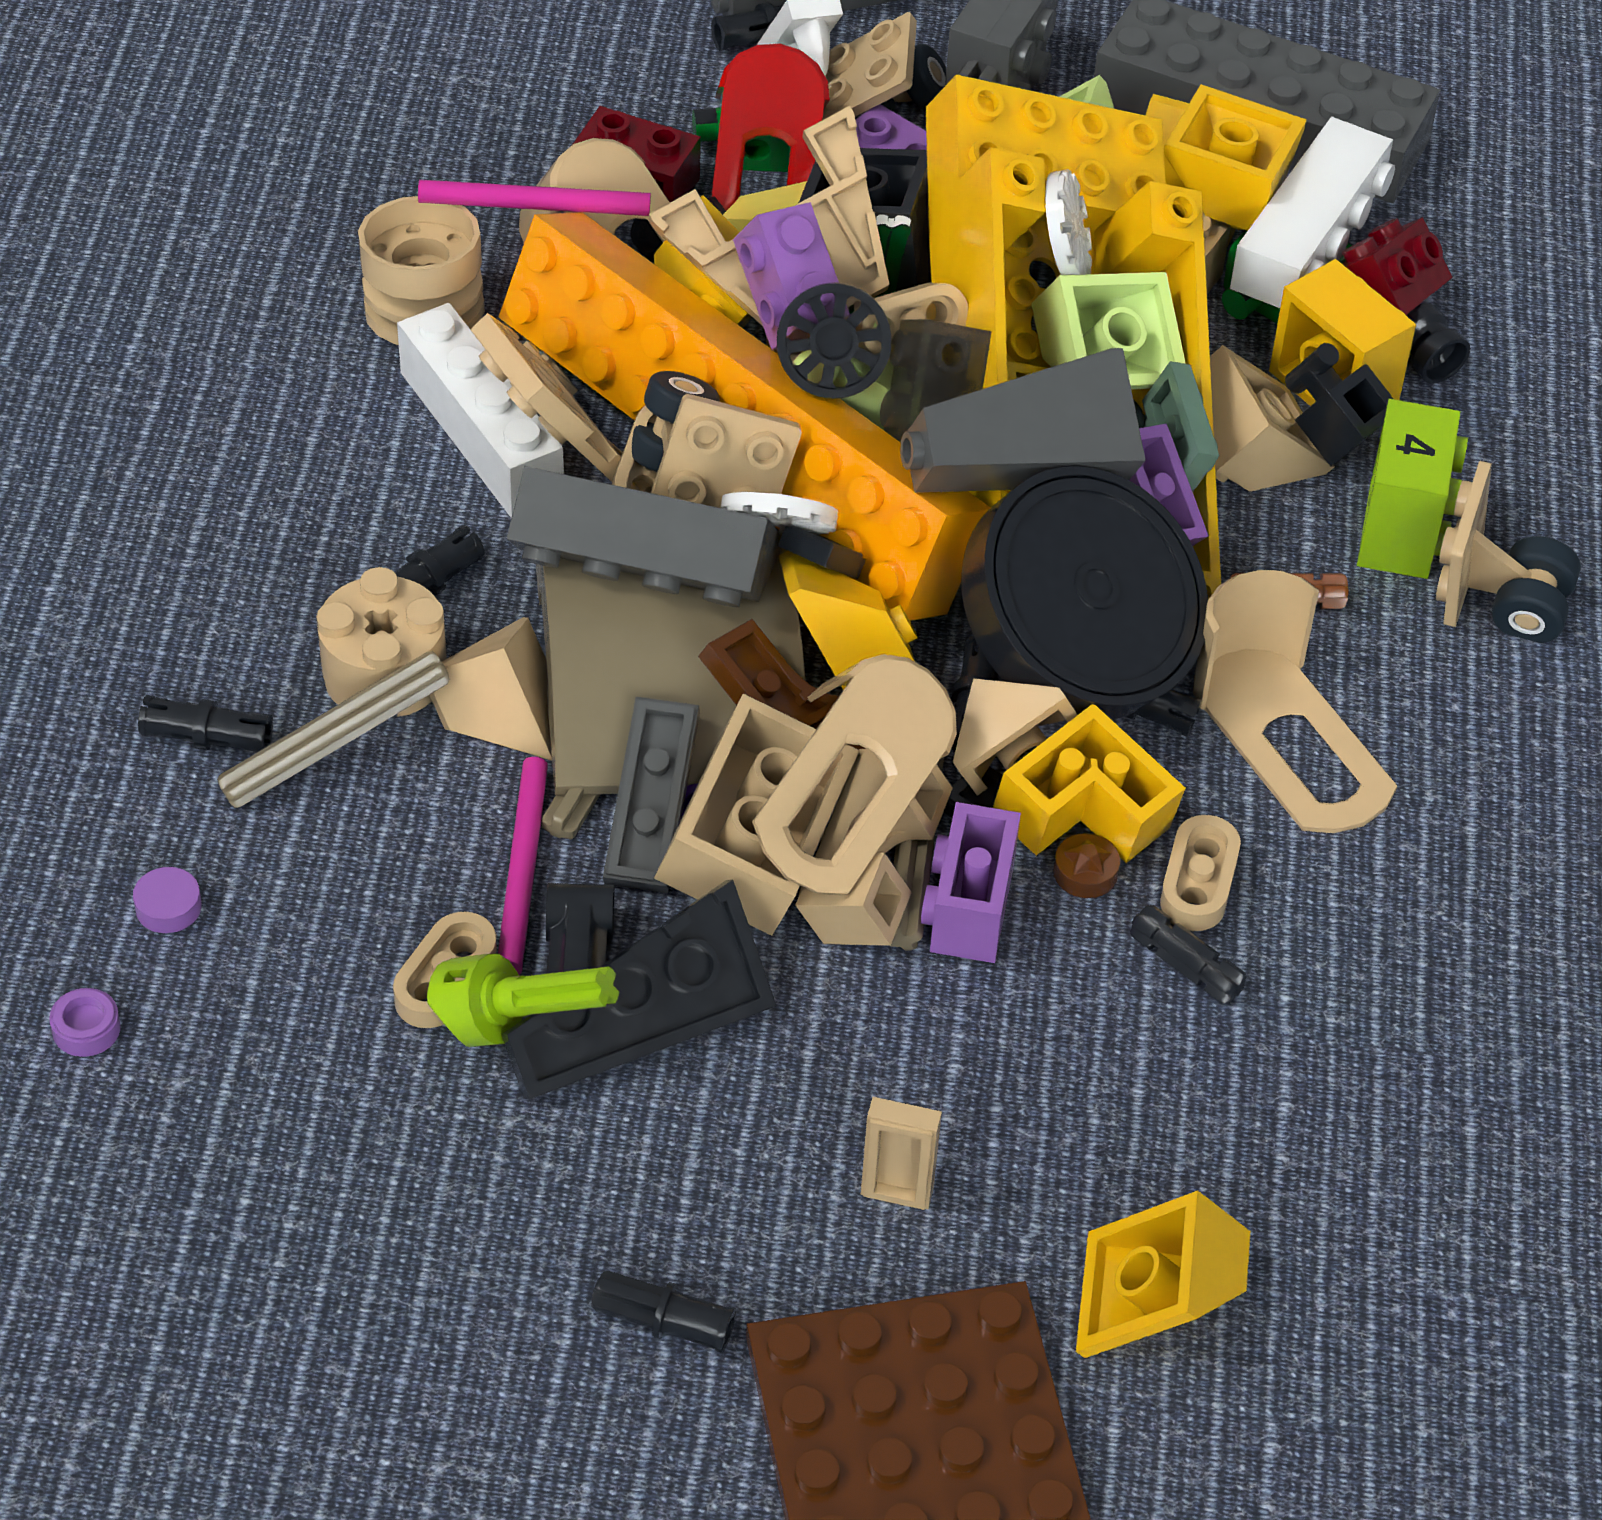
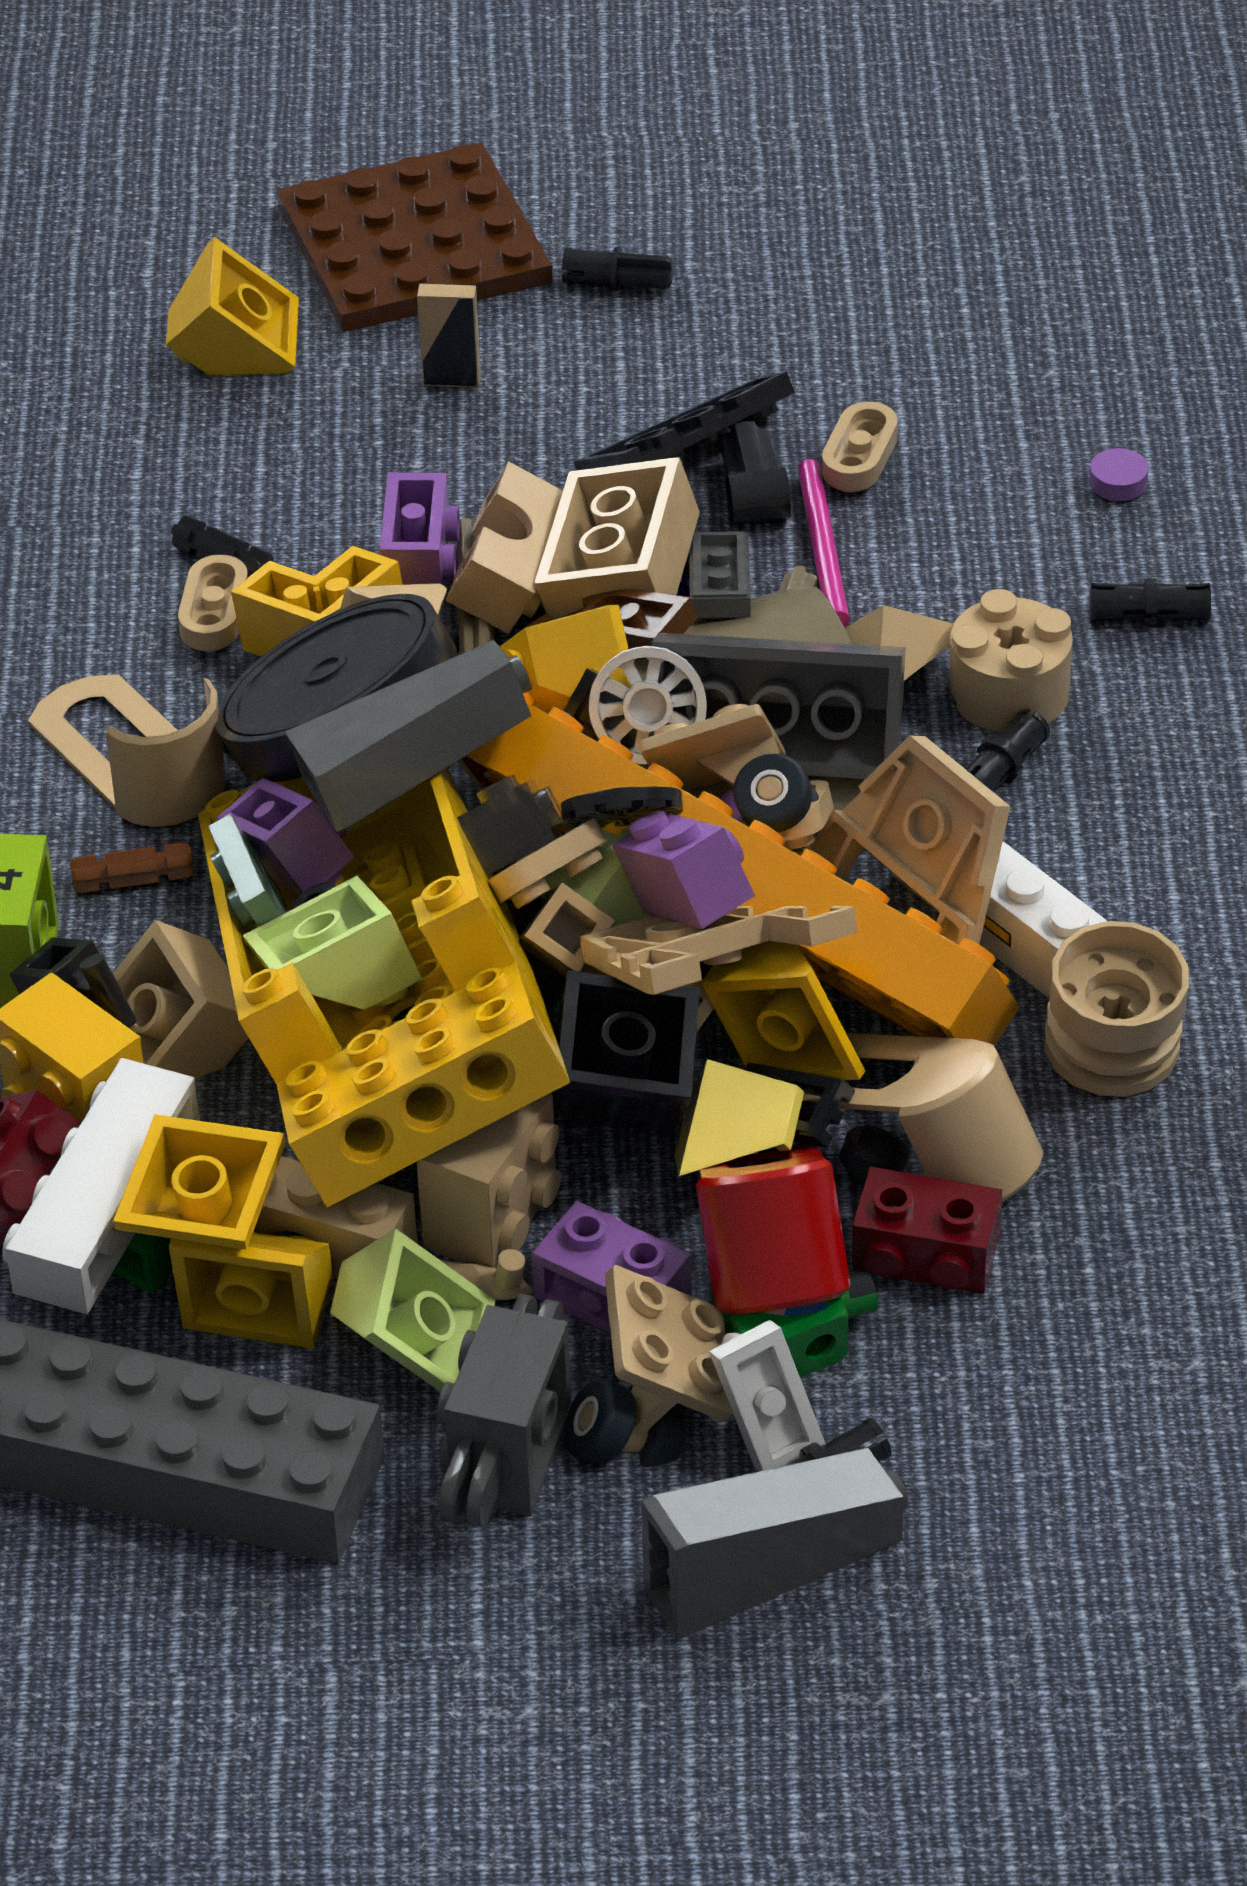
camera: 175 degrees right, 5 degrees down
(85, 1022) = (1144, 389): medium lavender tile -> none
(333, 729) = (1028, 579): axle -> none
(497, 998) = (810, 396): lime piece -> none
(534, 197) = (1005, 1023): dark pink bar -> none
(897, 715) = (512, 557): tan piece -> none
(1065, 224) = (388, 955): white wheel -> none

